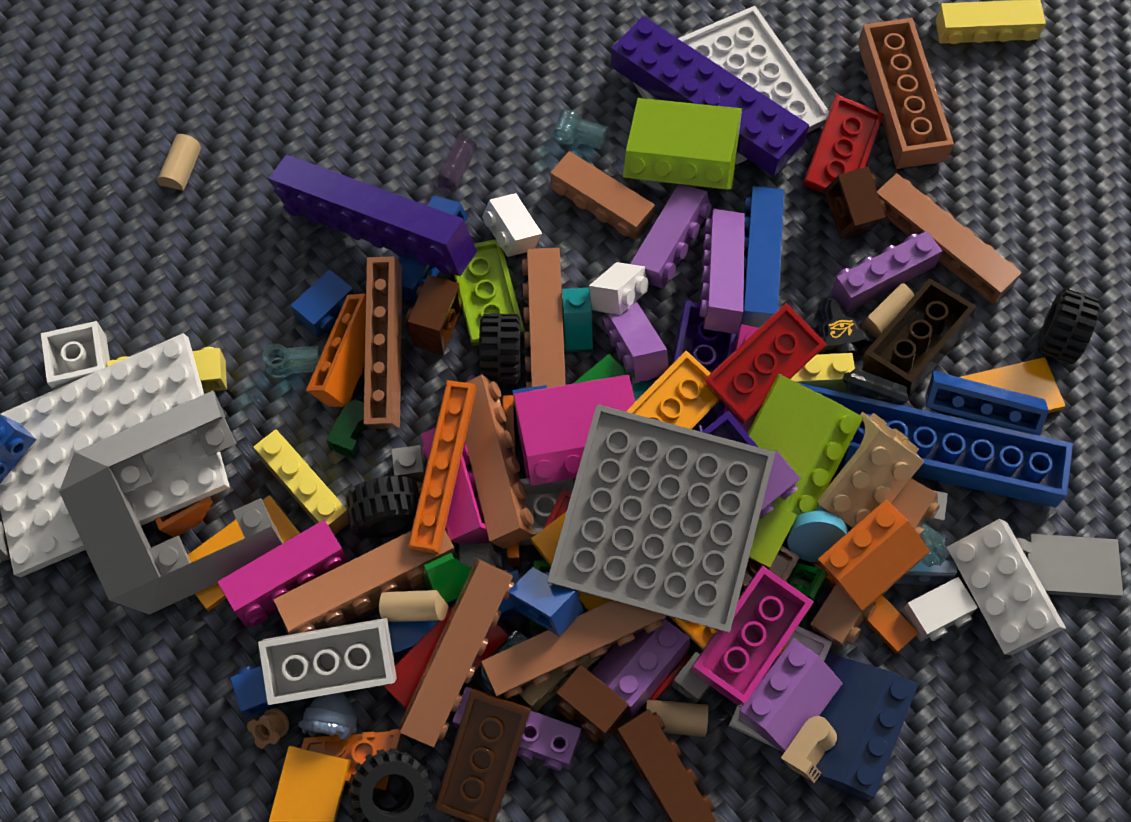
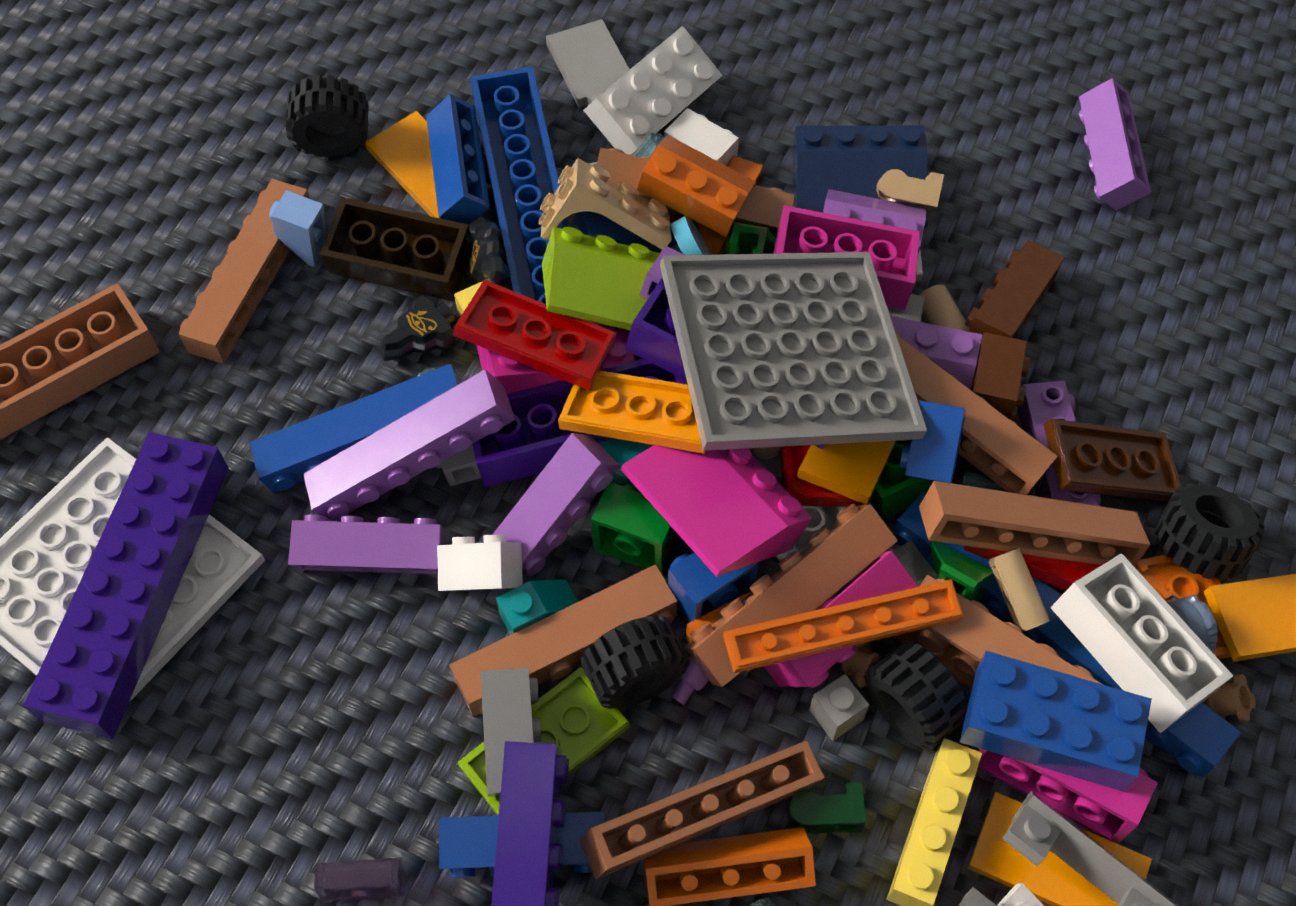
camera: 115 degrees left, 5 degrees down
(304, 558) = (1056, 721): none -> blue brick
(434, 314) = (622, 772): reddish brown brick -> none
(502, 262) = (506, 717): none -> light grey brick
(511, 225) = (435, 748): white brick -> none
(573, 128) = (239, 745): clear light blue piece -> none
(602, 195) = (337, 661): nougat brick -> none
(683, 143) = (231, 572): lime slope -> none
(843, 142) = (165, 407): red tile -> none
(855, 202) = (244, 356): reddish brown brick -> none
(886, 270) = (320, 308): medium lavender brick -> none
(887, 310) = (371, 294): tan brick -> none
(963, 270) = (300, 225): none -> light blue slope

